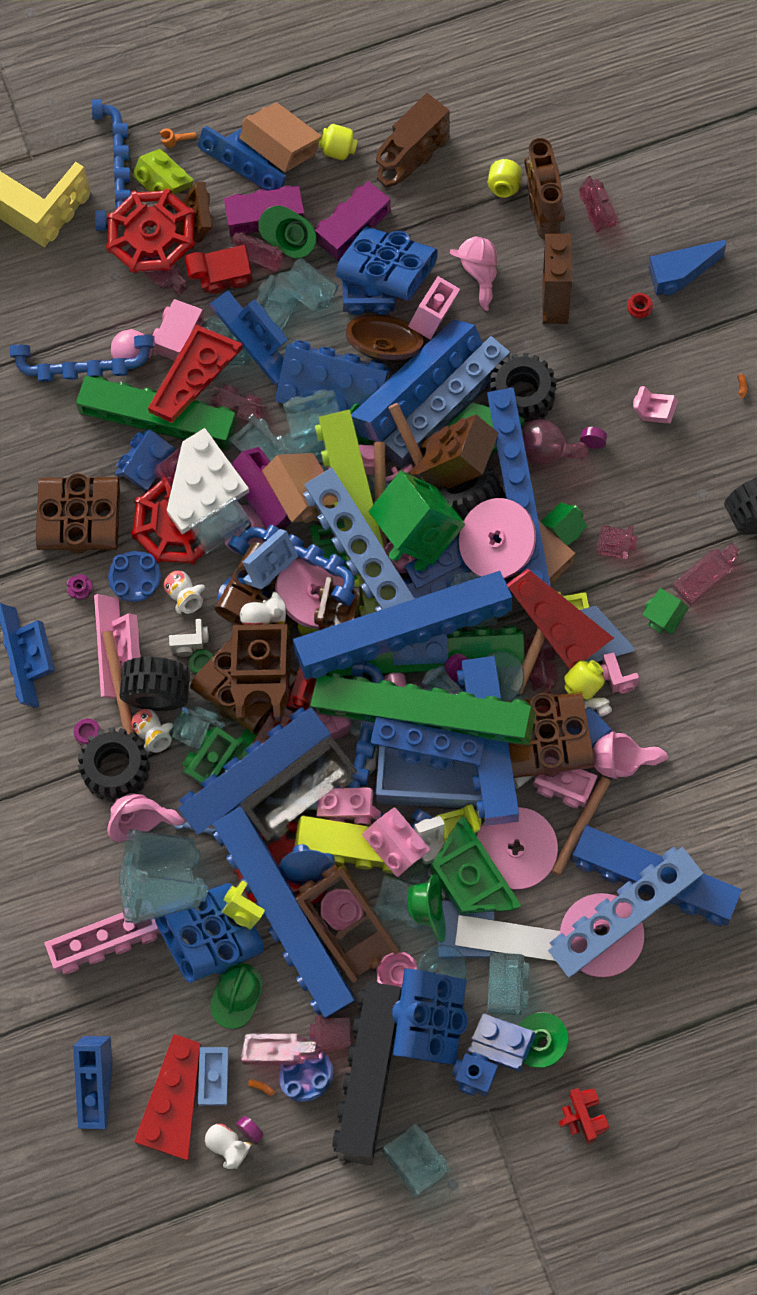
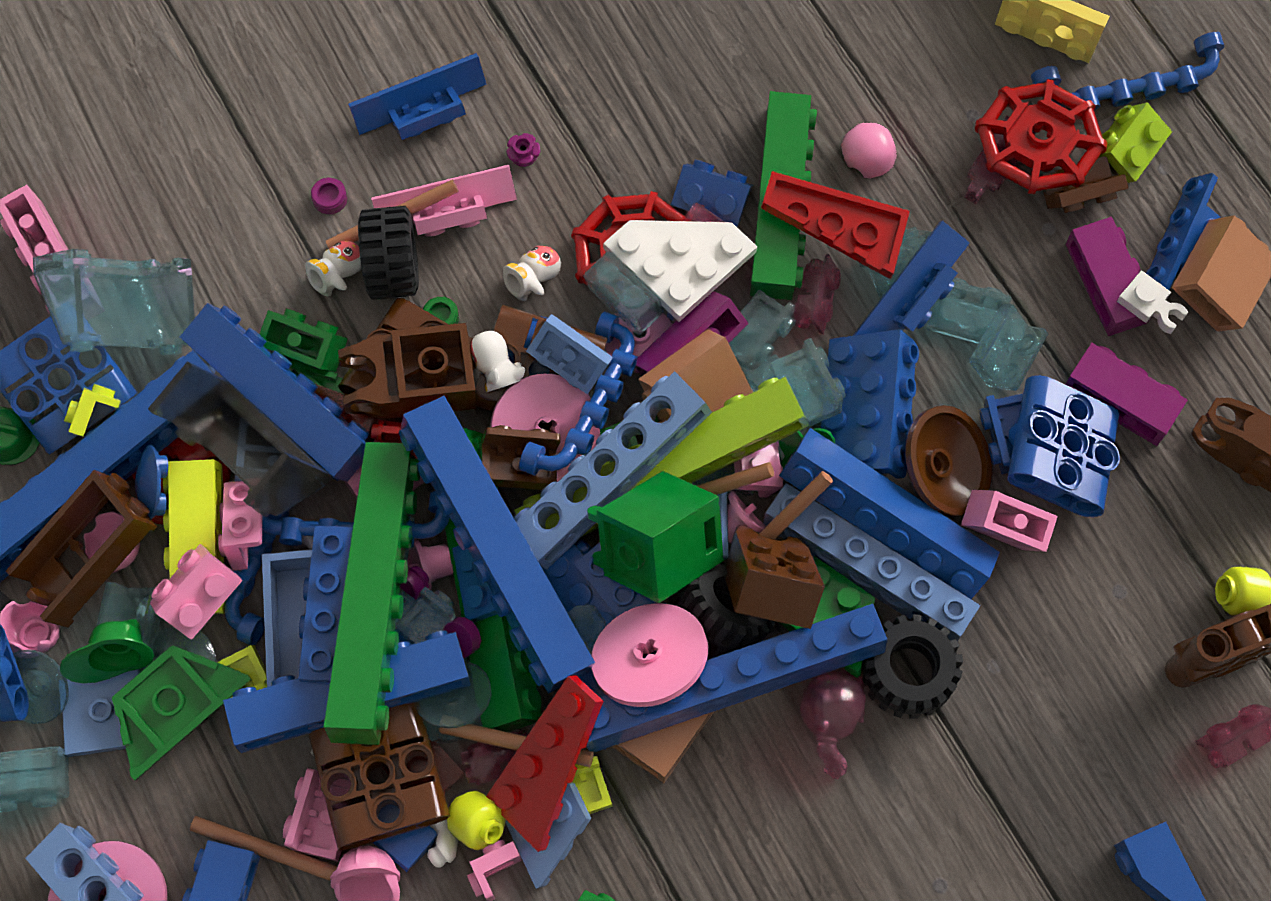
camera: 75 degrees right, 0 degrees up
(93, 367) = (826, 106): blue bar -> none
(98, 495) = (641, 102): reddish brown connector -> none
(108, 744) = (273, 205): black tyre -> none
(134, 576) = (547, 210): blue dish -> none
(140, 814) = (215, 261): bright pink piece -> none
(171, 142) = (1191, 145): orange hand -> none
(176, 327) = (915, 193): bright pink brick -> none
(187, 644) = (469, 304): white bracket -> none
(193, 725) = (349, 315): clear light blue bracket -> none
(220, 269) = (1007, 235): red hinge -> none
(260, 251) = (1049, 279): clear pink hinge -> none
(287, 231) = (1082, 307): green piece -> none
(293, 188) = (1148, 298): none -> white plate
(338, 142) = (1241, 353): neon yellow head -> none
(432, 834) = (216, 639): white bracket -> none
(480, 261) = (1097, 574): bright pink piece -> none
(504, 937) = (92, 766): white sticker -> none
(539, 847) = (216, 794): bright pink piece -> none
(556, 278) = (1076, 671): reddish brown door -> none
(565, 522) = (711, 756): green brick -> none
(594, 437) = (858, 781): magenta tile -> none
(616, 541) = (702, 839): clear pink bracket -> none
(642, 299) = (1096, 813): red plate -> none
(654, 406) = (925, 864): bright pink bracket -> none

